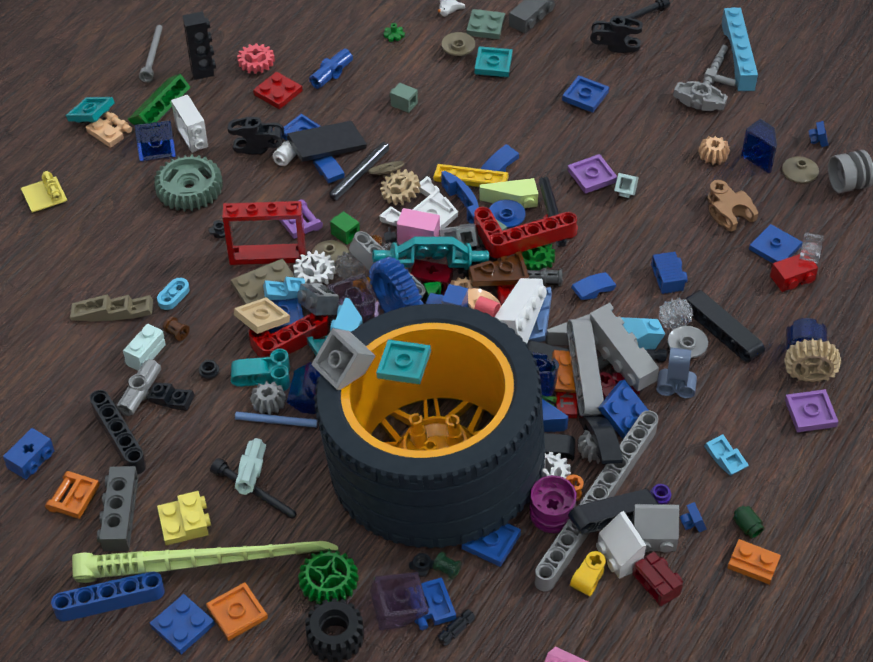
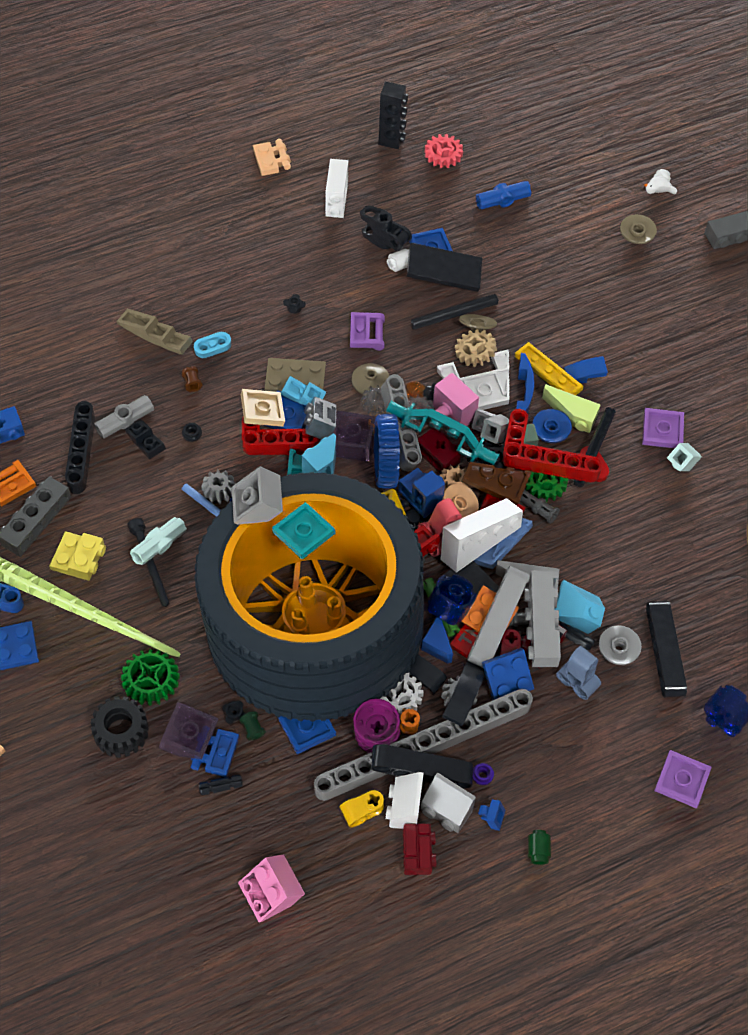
camera: 30 degrees right, 10 degrees up
(44, 193) = (176, 192): light yellow hinge -> none
(90, 109) = (266, 130): teal plate -> none
(144, 346) = (153, 382): light aqua brick -> none
(146, 73) = (340, 117): light grey piece -> none
(155, 140) = (299, 189): clear blue slope -> none
(160, 101) = (320, 156): green brick -> none
(188, 171) = (298, 232): sand green gear -> none
(236, 611) = (60, 661): orange plate -> none
(259, 370) = (232, 457): teal piece -> none
(263, 211) = (337, 359): red window -> none
(277, 90) = (442, 193): red plate -> none
(315, 268) = (346, 387): white gear -> none
(329, 169) = (428, 296): blue slope -> none
(344, 227) = (399, 360): green brick -> none
(394, 33) = (589, 187): green plant -> none
(404, 97) = (546, 258): sand green brick -> none
(431, 287) = (428, 464): green slope -> none
(485, 24) = (682, 220): sand green plate -> none
(493, 61) = (658, 264): teal plate -> none
(585, 93) = (720, 343): blue plate -> none
(590, 286) = (575, 539): blue slope -> none
(669, 272) = (656, 567): blue brick -> none
(675, 313) = (628, 611): clear gear -> none
(728, 459) = (570, 773): medium azure slope -> none
(754, 561) = (517, 886): orange plate -> none
(812, 360) = (718, 732): tan gear -> none

